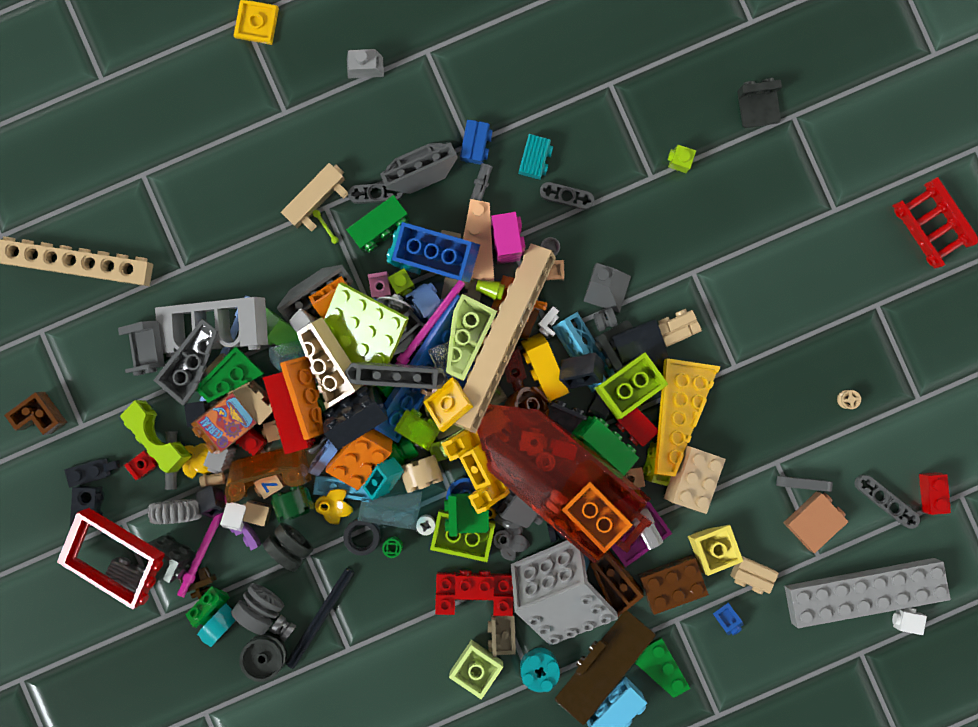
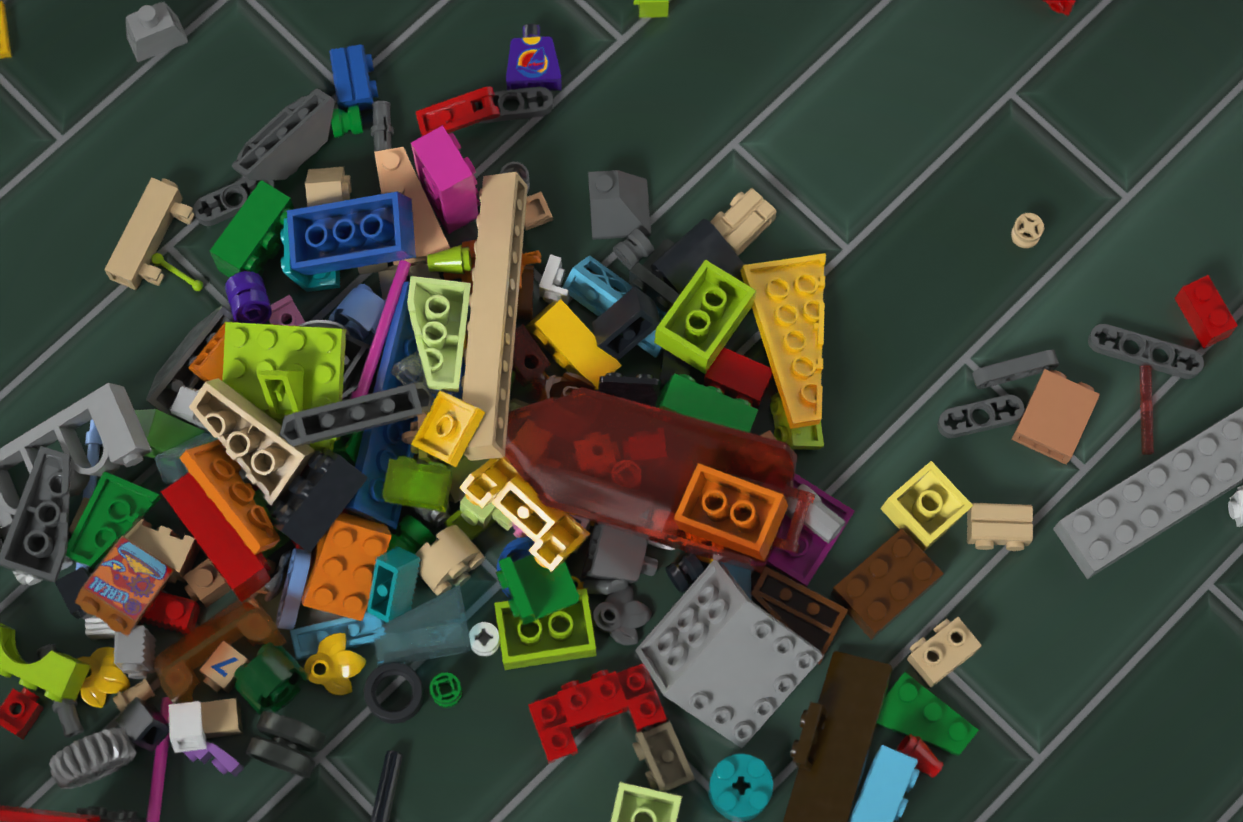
camera: 20 degrees left, 15 degrees down
(357, 342) = (282, 391): none -> lime slope
(359, 267) = (248, 298): none -> dark purple wheel
(401, 283) = (316, 302): lime brick -> none
(433, 212) = (327, 186): none -> tan brick
(461, 169) = (345, 121): none -> green wheel
(530, 191) = (458, 112): none -> red plate
(534, 157) = (444, 67): teal brick -> none
(590, 173) = (533, 61): none -> dark purple torso
(648, 689) = (918, 750): none -> red cone
(689, 636) = (943, 651): none -> tan brick
(695, 480) = (854, 419): tan brick -> none
(728, 619) = (992, 605): blue bracket -> none
(785, 499) = (1003, 418): none -> dark grey beam
(871, 537) = (1146, 407): none -> clear red bar

